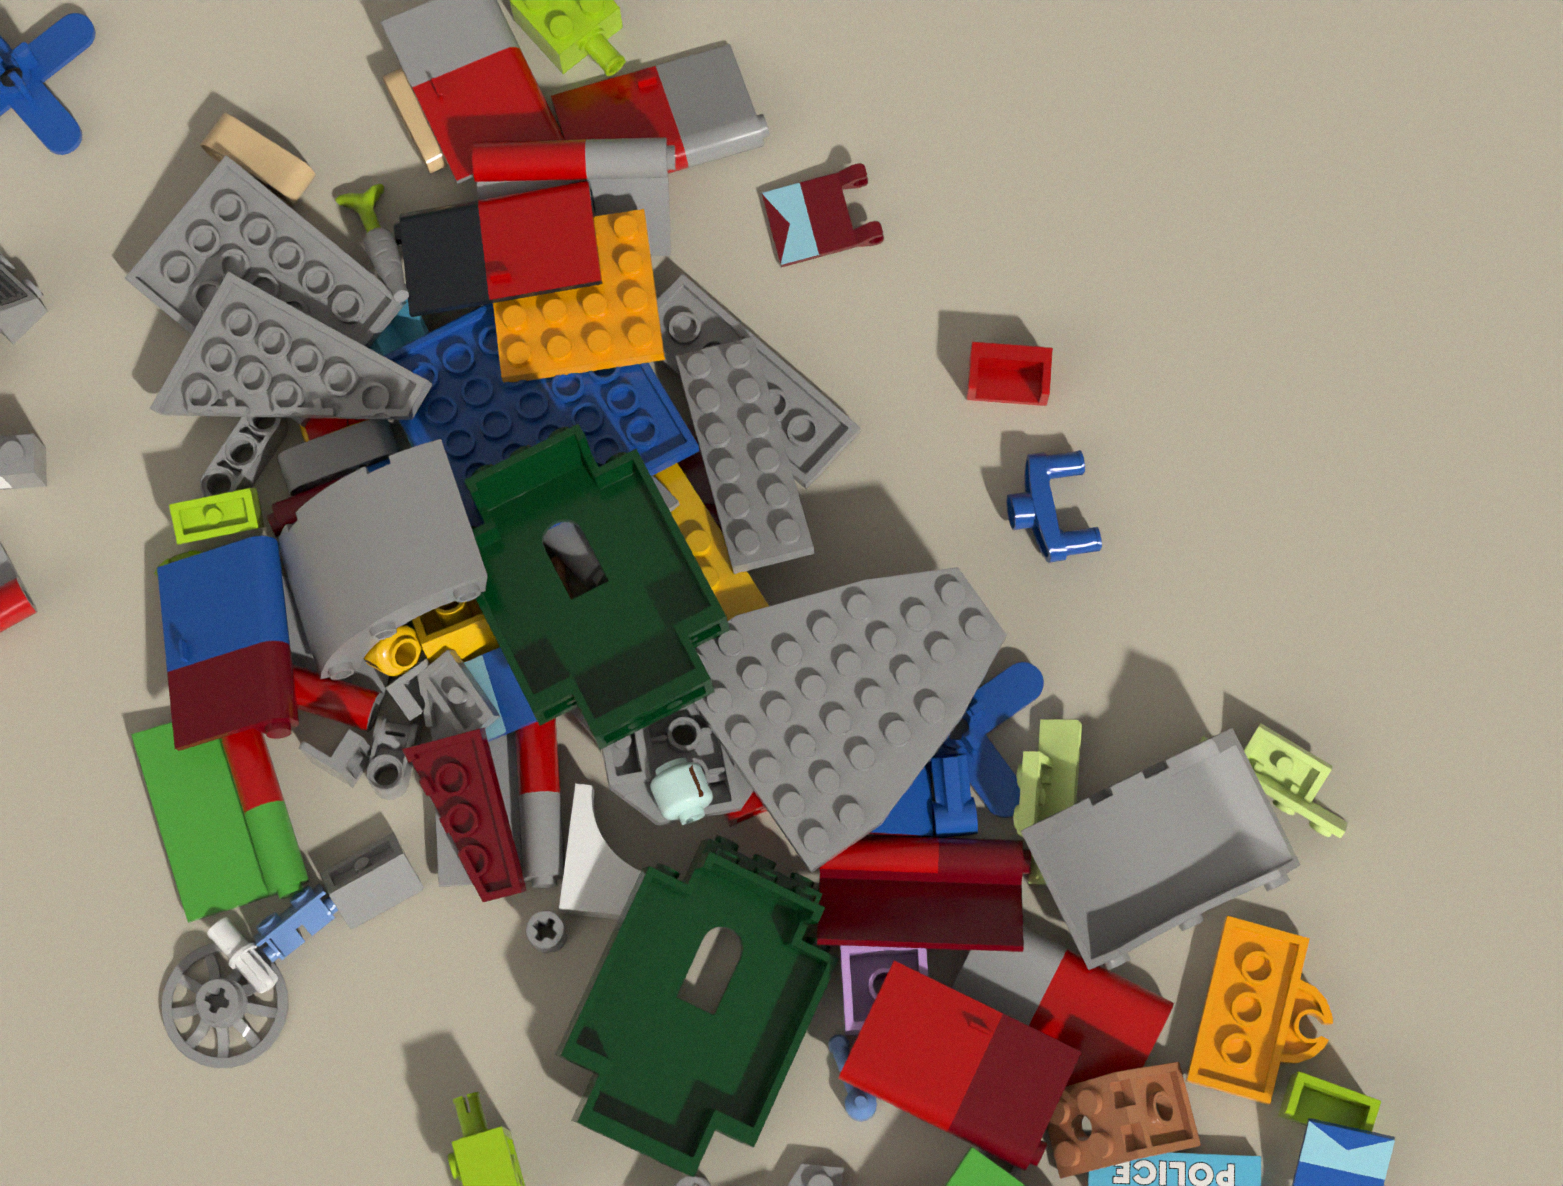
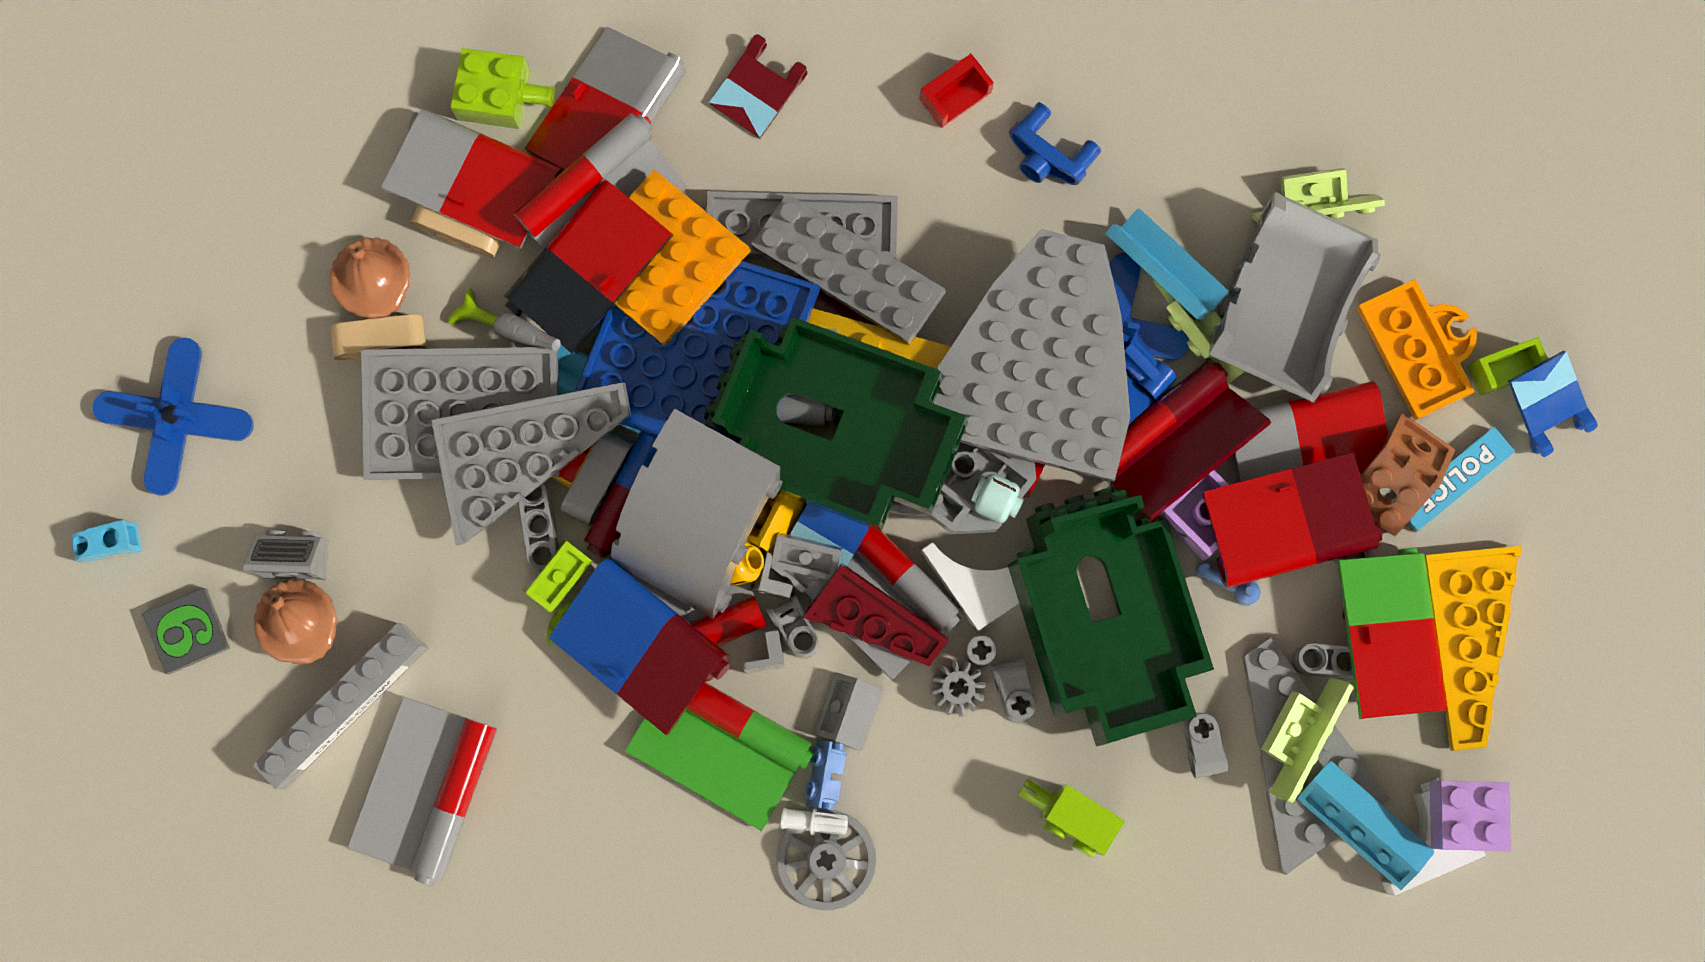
camera: 45 degrees left, 5 degrees up
(298, 98) = (370, 278): none -> nougat piece
(486, 962) = (962, 698): none -> light grey gear
(550, 991) = (1014, 683): none -> light grey piece
(1065, 714) = (1169, 264): none -> medium azure panel

